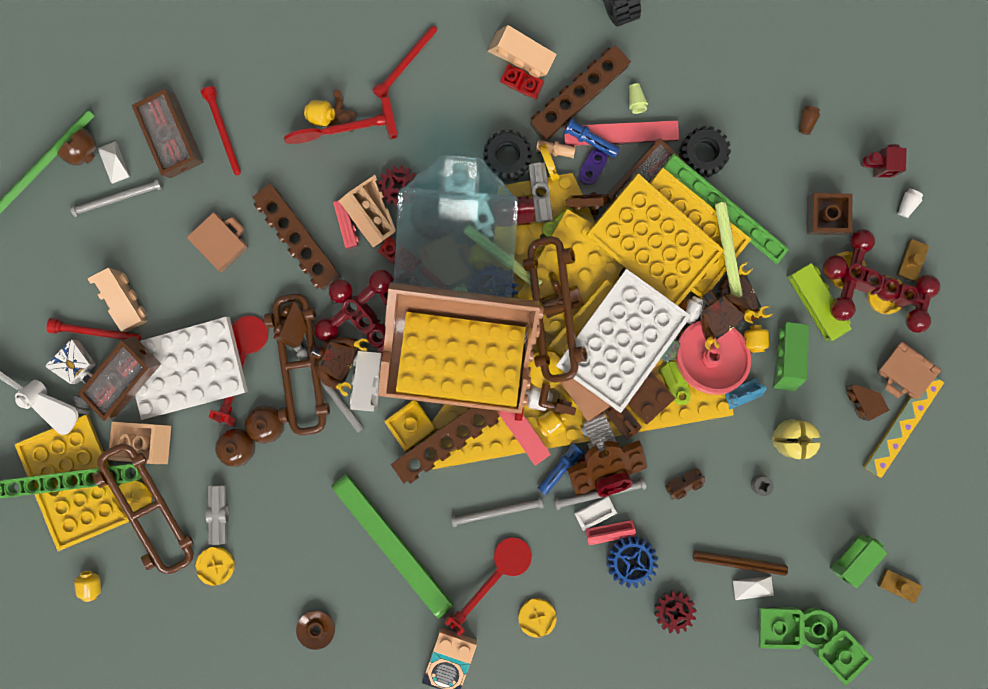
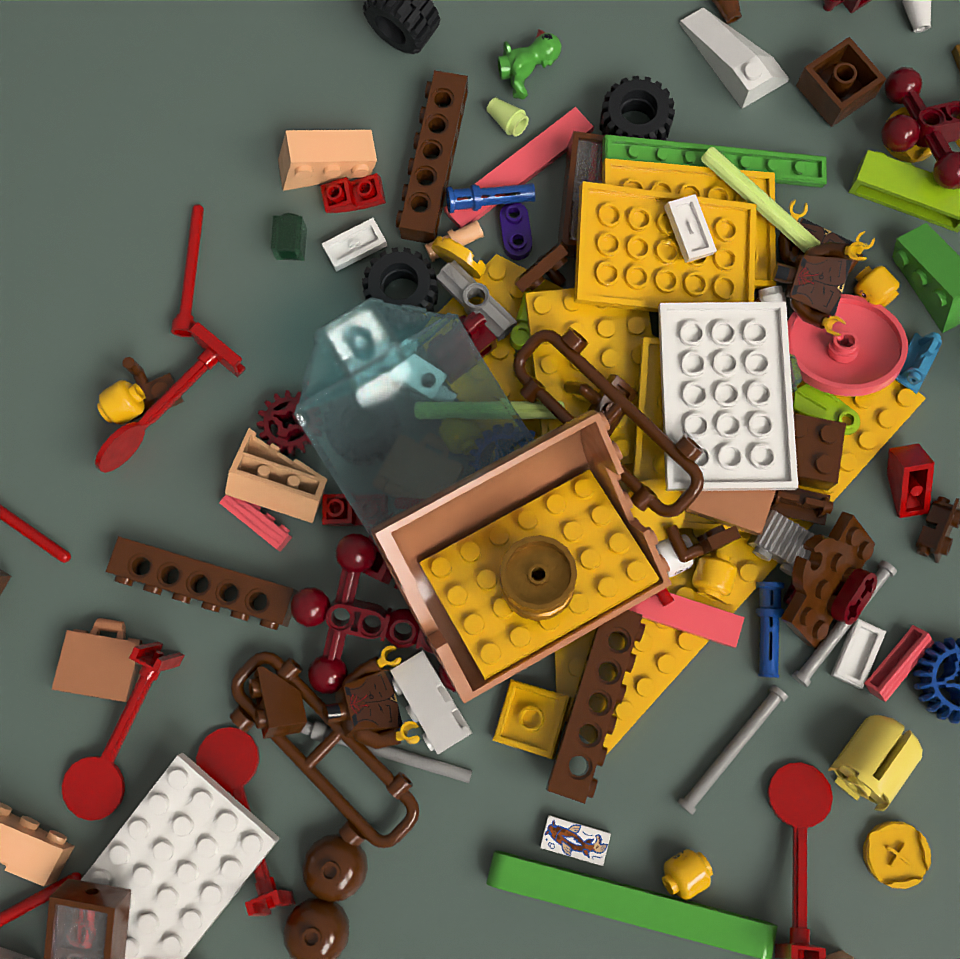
camera: 30 degrees left, 10 degrees down
(176, 299) = (94, 783): none -> red piece
(388, 497) = (575, 840): none -> tile
(429, 551) = (687, 874): none -> yellow head
(464, 356) = (539, 558): none -> pearl gold wheel
(470, 82) = (289, 237): none -> clear green brick
(501, 112) = (354, 244): none -> white plate
(561, 568) = (877, 760): none -> light yellow cylinder
(666, 73) = (520, 62): none -> bright green animal
(675, 239) = (690, 228): none -> white plate
(690, 449) = (910, 479): none -> red slope
(787, 160) = (737, 61): none -> white wedge

